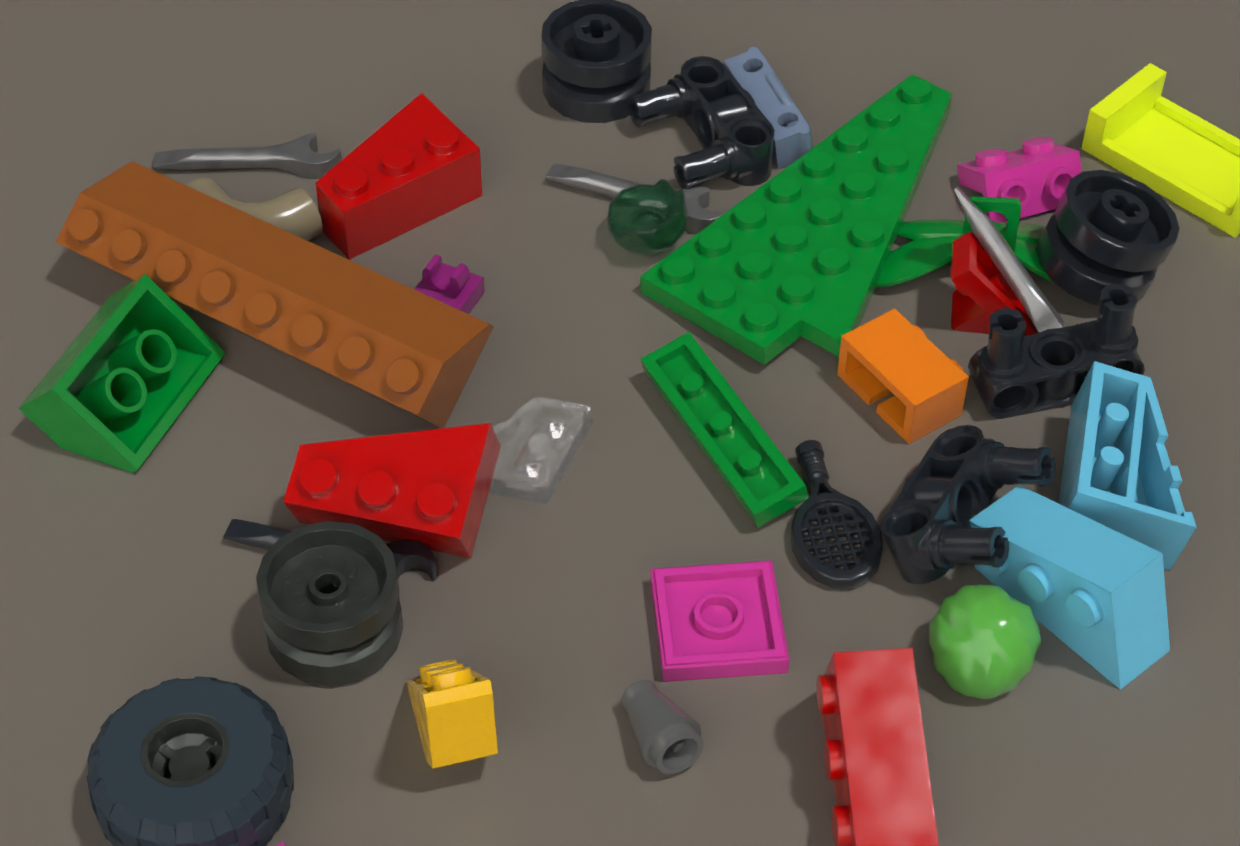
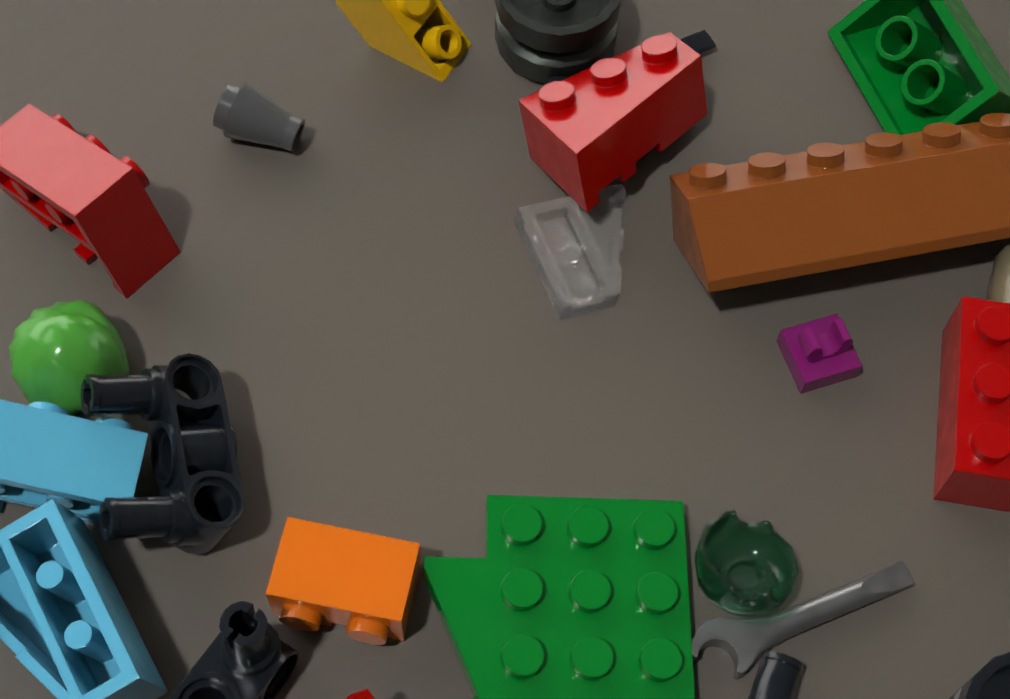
camera: 135 degrees right, 15 degrees up
(718, 621) = (298, 240): dark pink tile -> none
(724, 429) = (450, 394): green plate -> none
(810, 456) = (356, 438): black piece -> none

